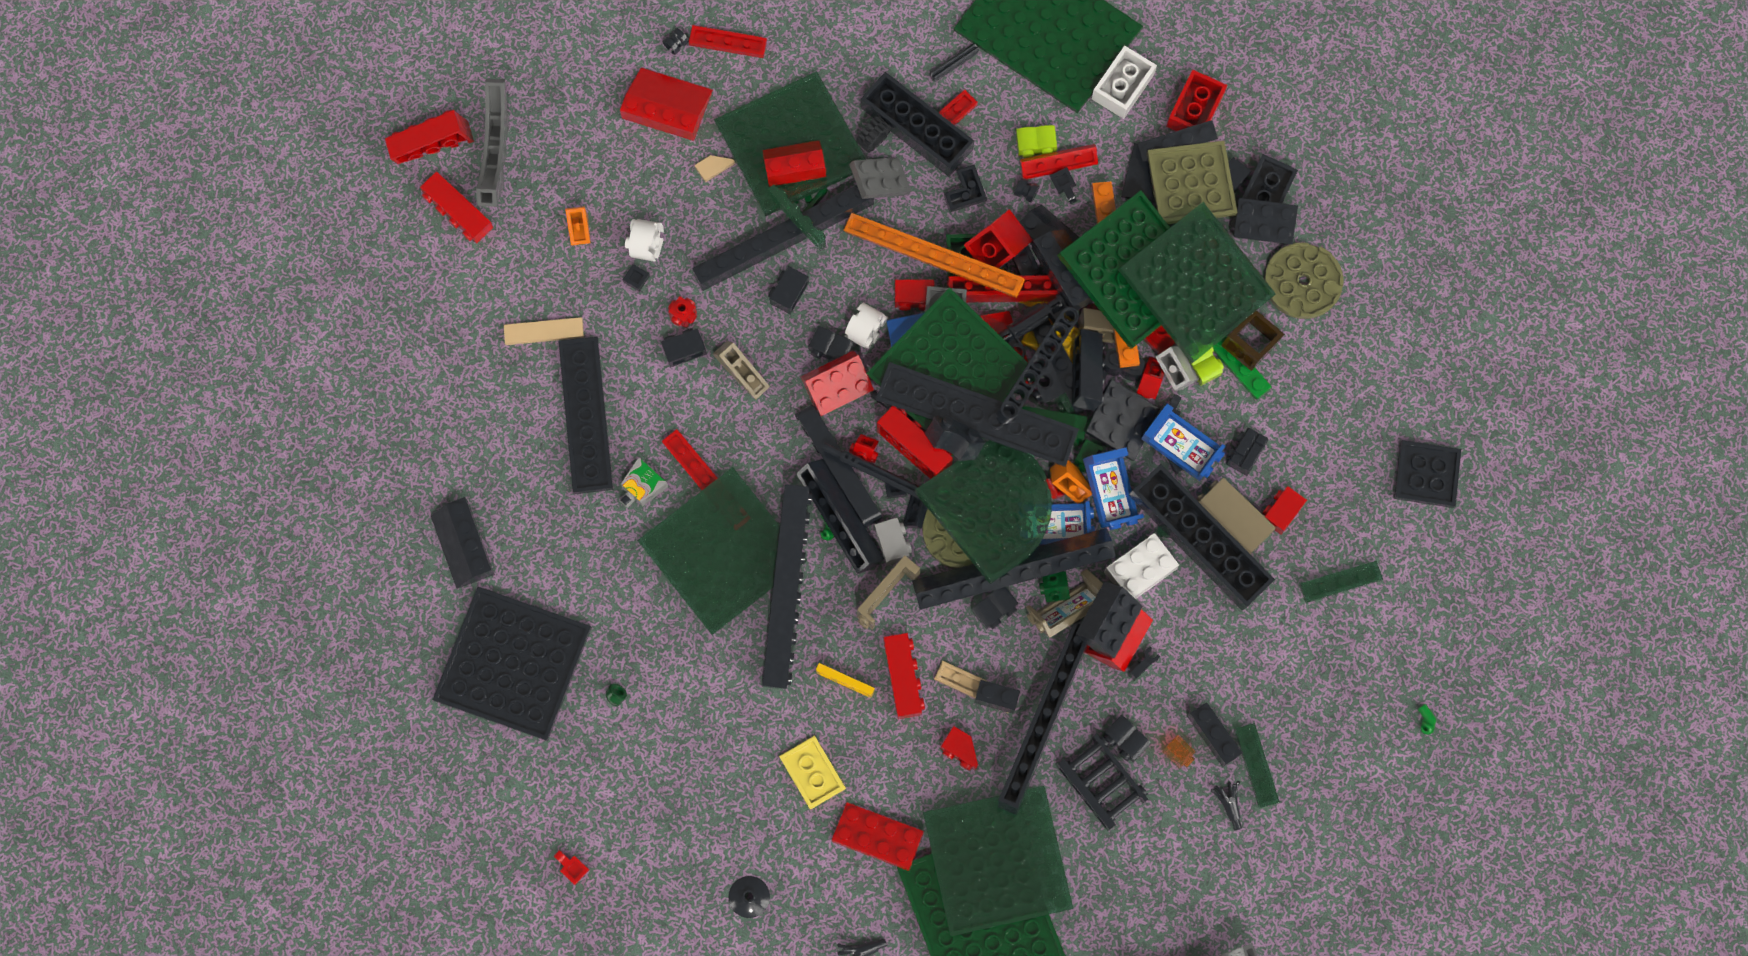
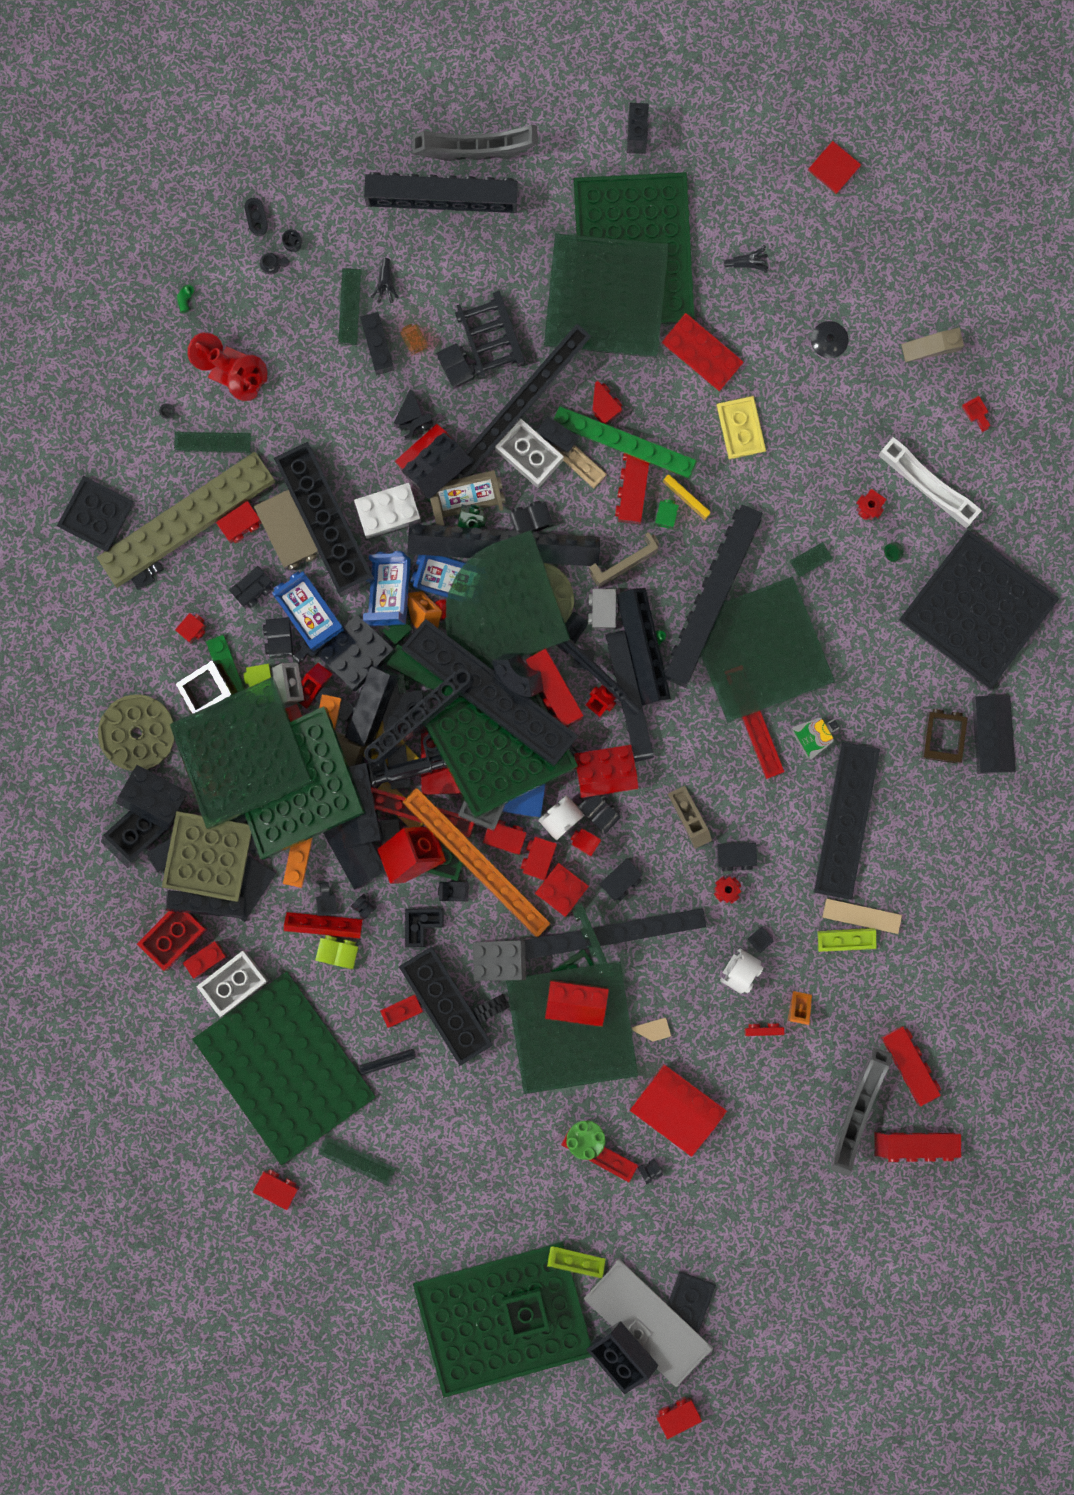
camera: 160 degrees left, 10 degrees up
(509, 505) = (941, 756): none -> dark brown window
(552, 303) = (846, 939): none -> lime plate
(599, 198) = (756, 1030): none -> red plate
(599, 775) = (909, 467): none -> white arch
(638, 923) = (933, 345): none -> dark tan slope
(654, 739) = (873, 499): none -> red brick
(698, 658) = (810, 559): none -> clear green plate
(744, 46) = (586, 1140): none -> bright green dish
(834, 311) = (585, 842): none -> red slope
(843, 262) = (561, 889): none -> red brick
(860, 656) = (666, 514): none -> green brick
(874, 285) = (539, 858): none -> red brick
(926, 711) = (626, 443): none -> green plate
(941, 228) = (453, 891): none -> black bracket
(1019, 670) = (529, 453): none -> white brick
(1156, 677) = (408, 411): none -> black slope
(1158, 96) = (205, 959): none -> red piece
(1201, 411) = (279, 638): none -> black brick
(1207, 912) = (441, 193): none -> black brick
(1290, 393) = (191, 628): none -> red brick
(1336, 497) = (185, 519): none -> olive plate
(1345, 812) = (291, 236): none -> black wheel
(1354, 660) = (231, 368): none -> red piece
(1354, 785) = (271, 263): none -> black piece
(1356, 431) = (145, 577): none -> black plate
(1389, 827) = (256, 217): none -> black plate
(1398, 595) = (167, 415): none -> black hinge

